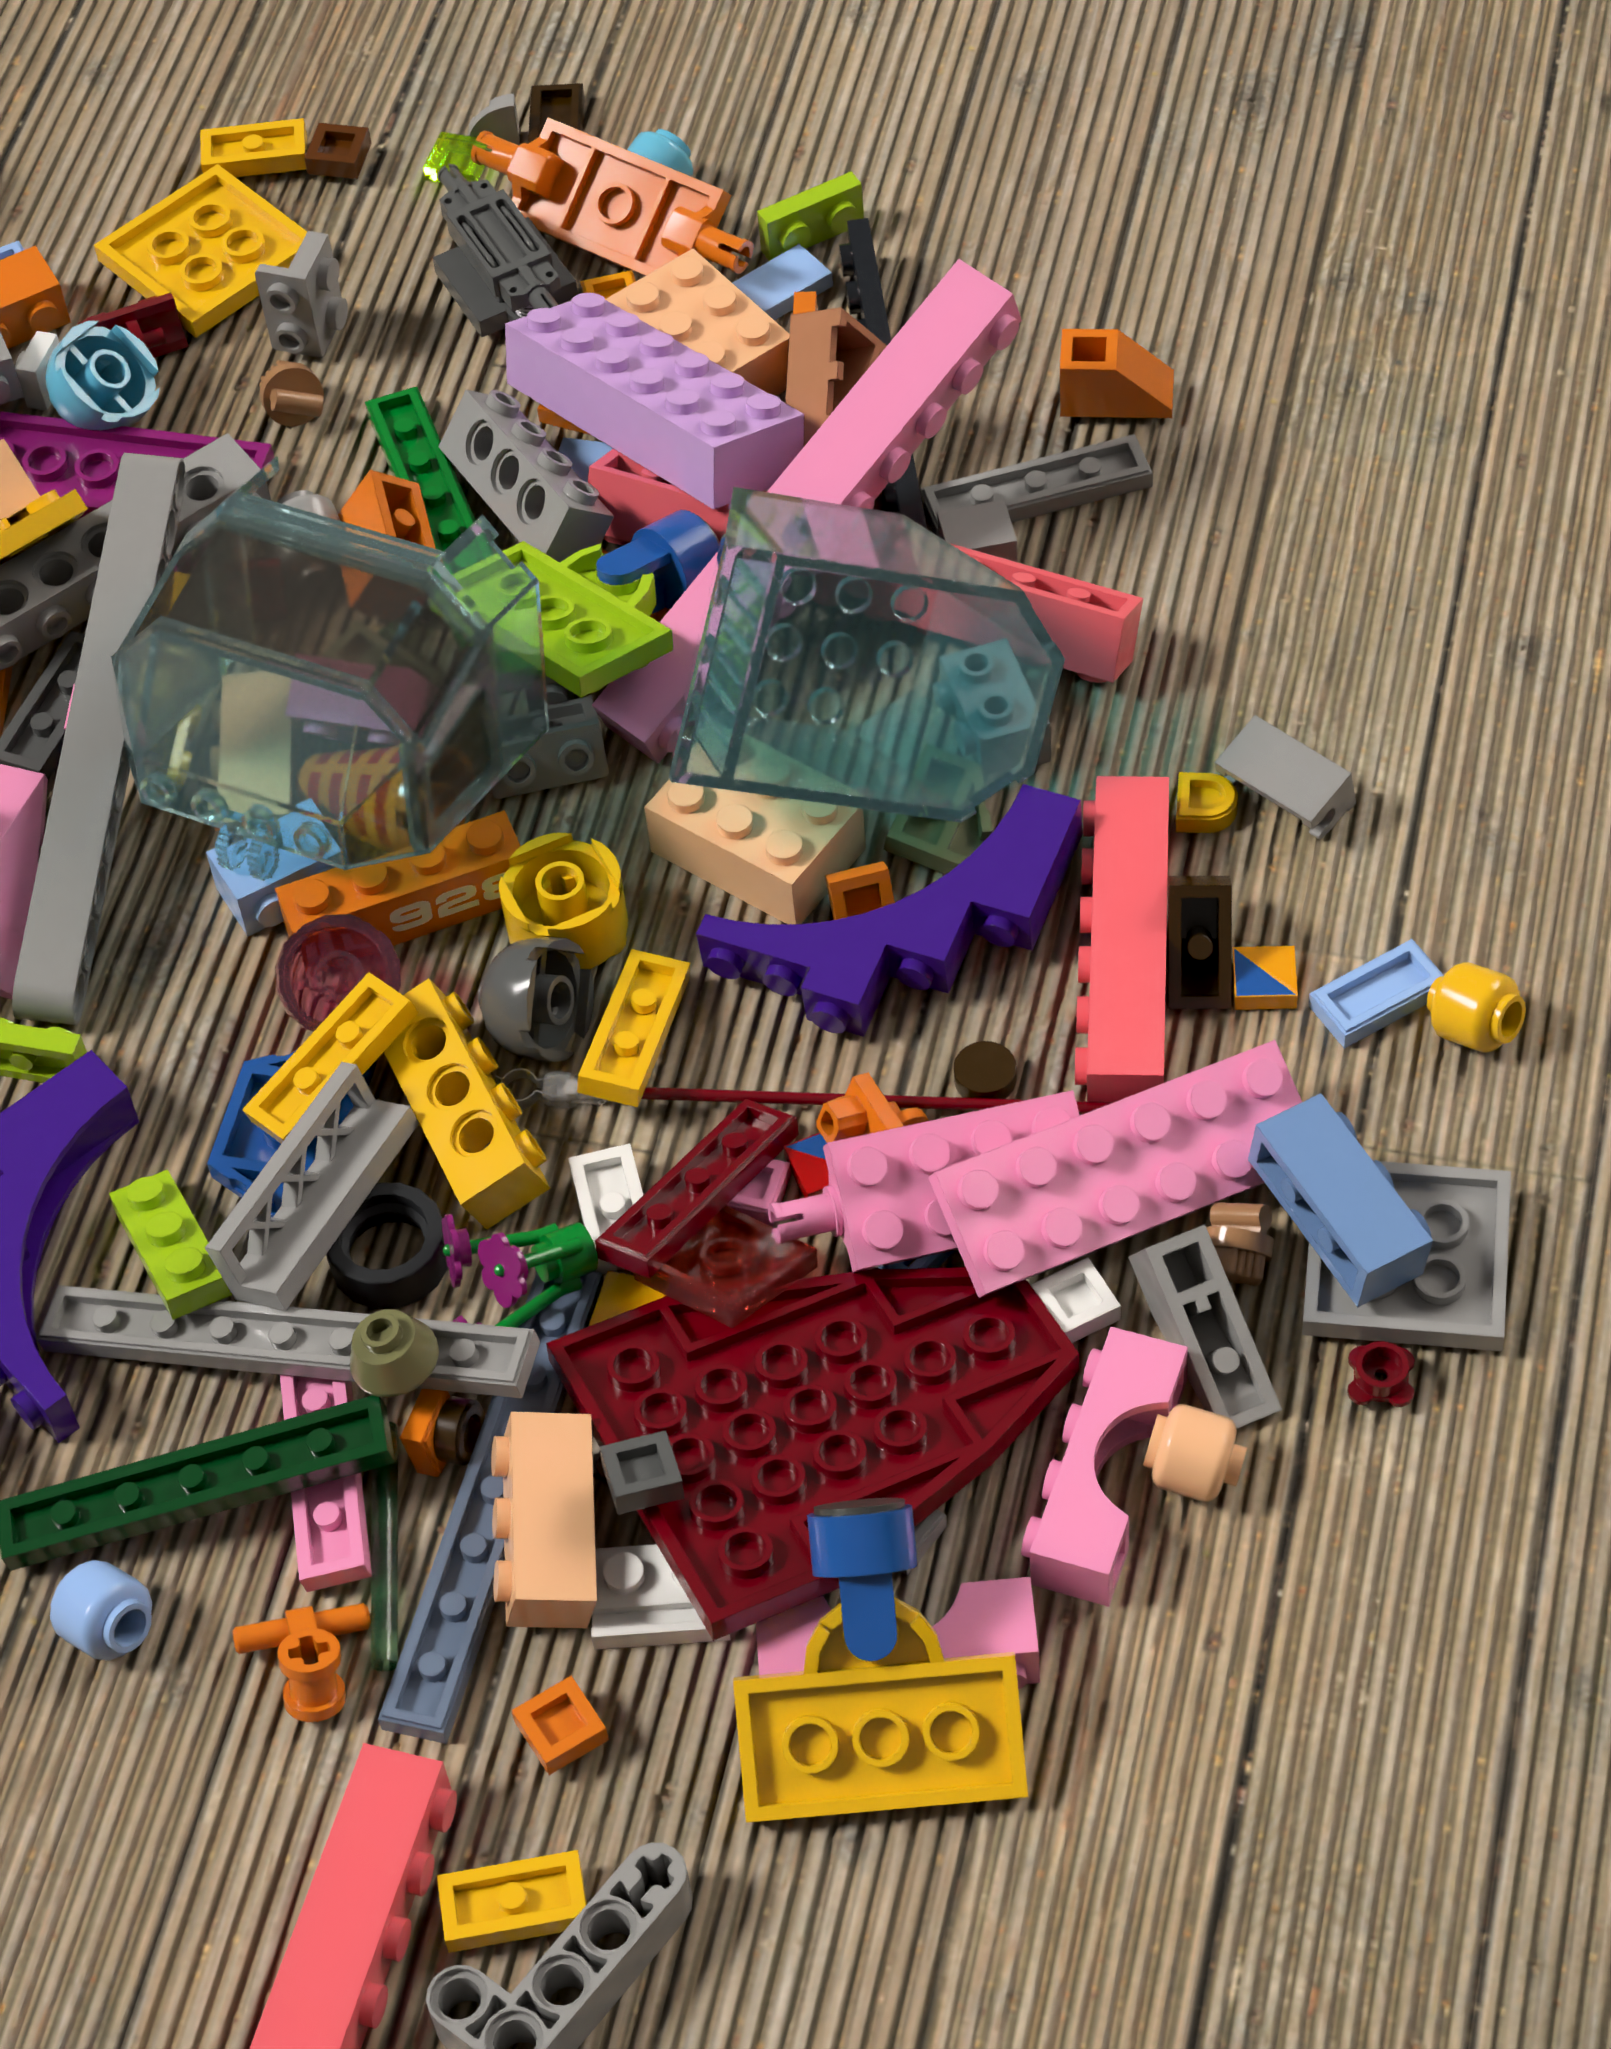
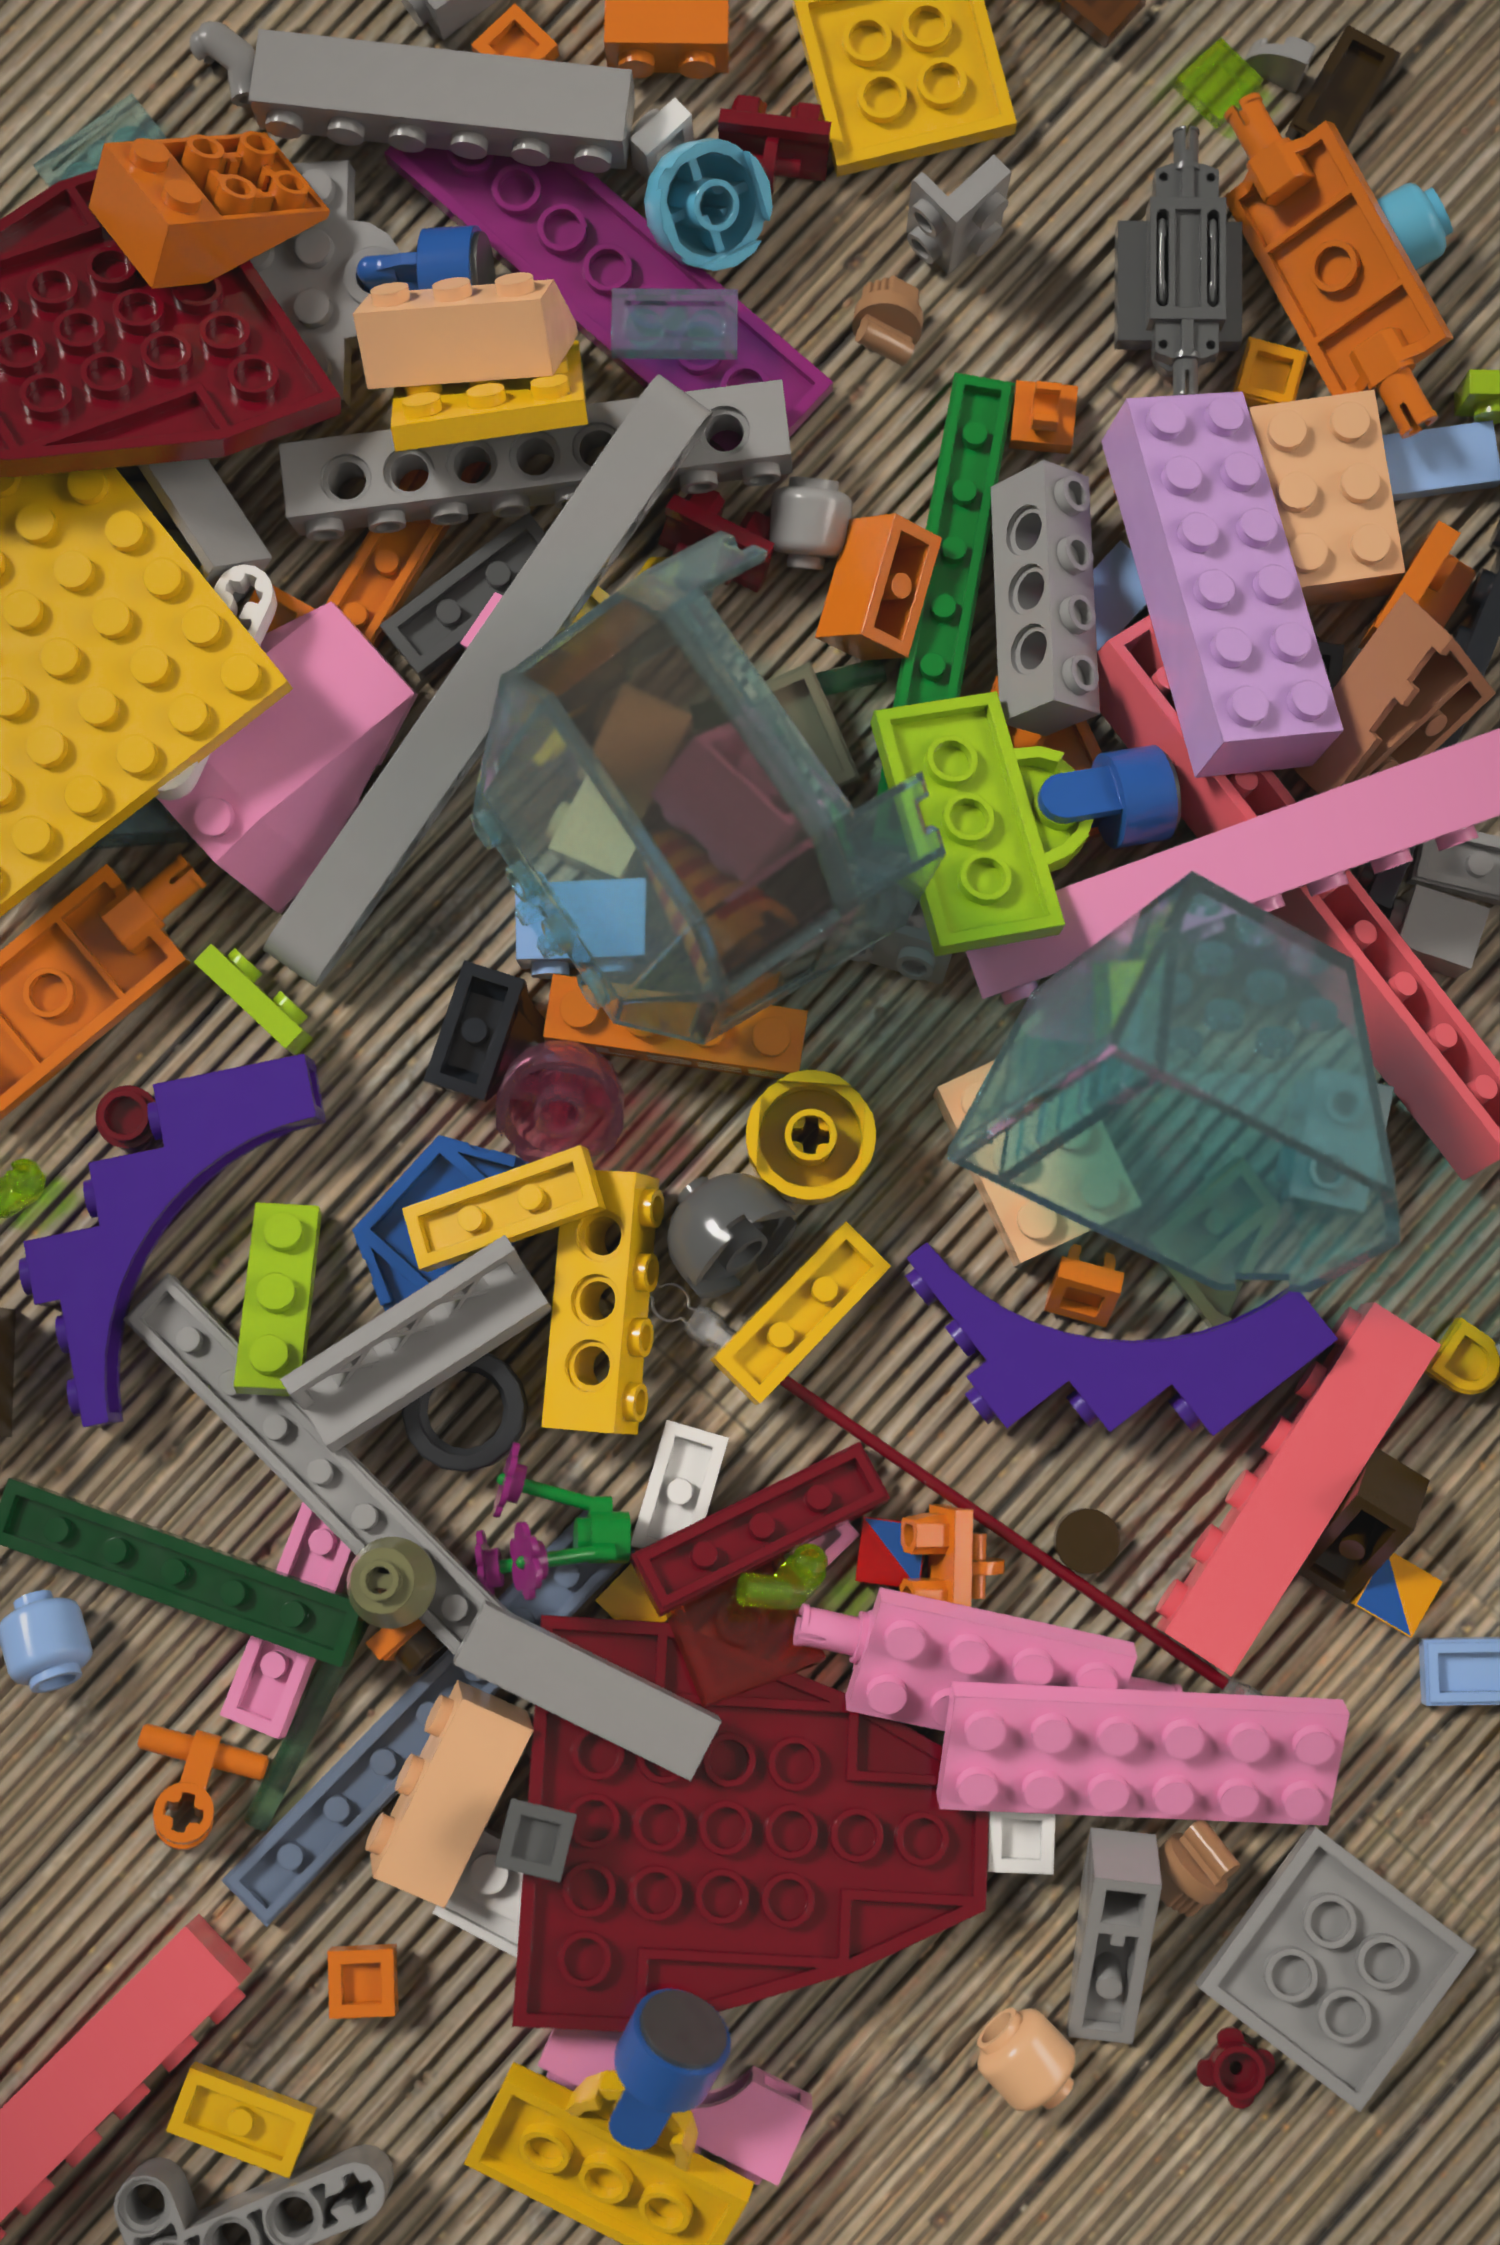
camera: 30 degrees right, 30 degrees up
(95, 463) = (674, 323): none -> clear light blue plate
(237, 977) = (483, 1032): none -> black slope
(445, 391) = (1043, 416): none -> orange tile
(617, 1344) = (587, 1690): none -> light grey tile
(746, 1213) = (790, 1584): none -> clear neon green arm
(1082, 1534) = (1007, 1963): bright pink arch -> none
(1340, 1199) = (1302, 1917): medium blue brick -> none

